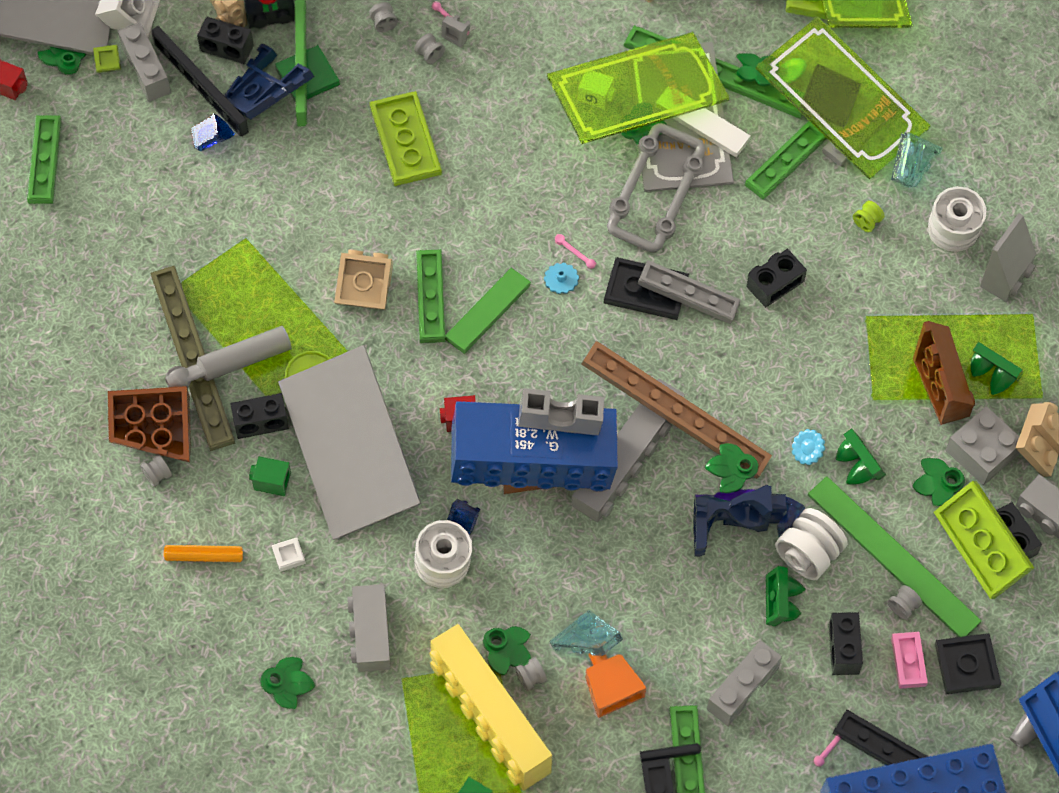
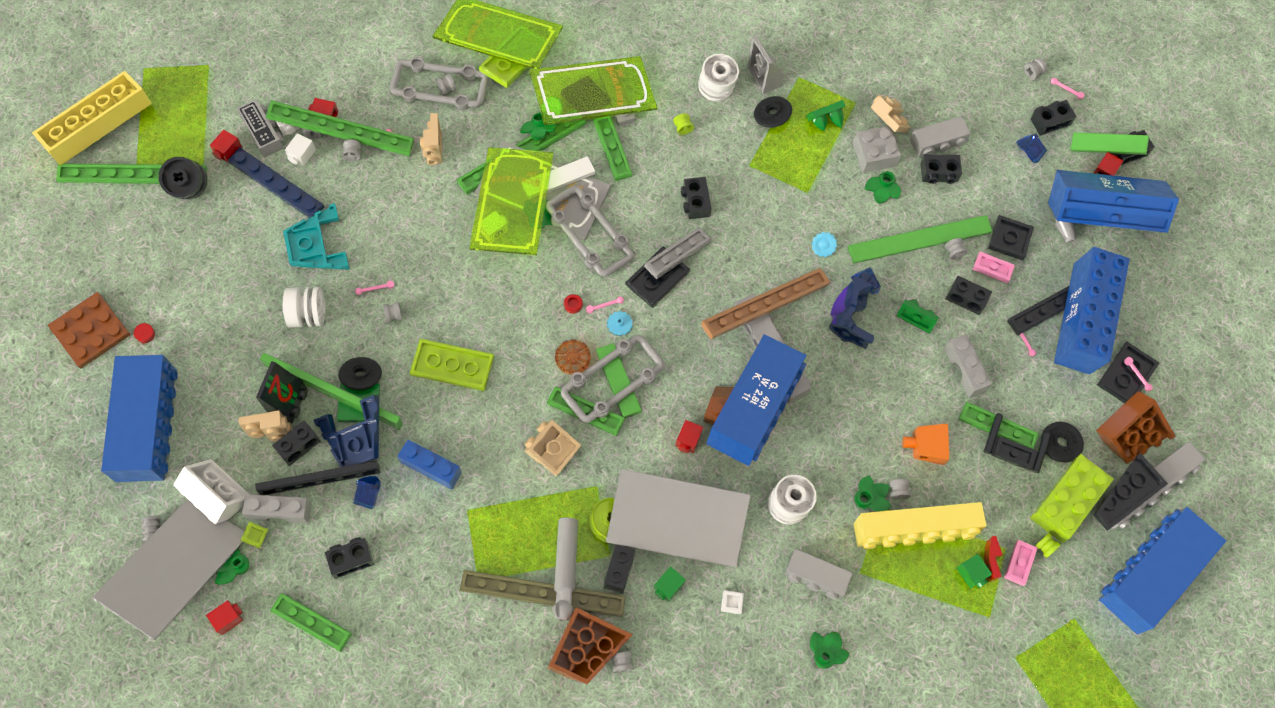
camera: 65 degrees left, 5 degrees up
(125, 158) = (350, 563): none -> black brick
(203, 553) = (702, 660): light orange axle -> none
(273, 173) = (429, 464): none -> blue brick
(347, 68) = (369, 379): none -> black wheel
(383, 17) = (347, 328): light grey wheel -> none
(454, 30) = (389, 289): light grey tile -> none
(464, 515) = (766, 473): clear blue tile -> none
(488, 250) = (572, 356): none -> clear orange wheel
(507, 333) = (601, 408): none -> light grey bar
(555, 218) = (573, 303): none -> red tile
(578, 416) = (760, 365): light grey arch -> none
(587, 635) = (891, 440): clear light blue wing -> none
(729, 469) = (820, 294): green plate -> none
(811, 544) = (897, 276): white wheel -> none
(866, 467) = (855, 221): green tile -> none
(913, 159) = (660, 80): clear light blue wing -> none
(942, 307) = (783, 113): none -> black wheel
(942, 373) = (822, 144): dark orange wedge -> none
(983, 540) = (939, 183): lime tile -> none

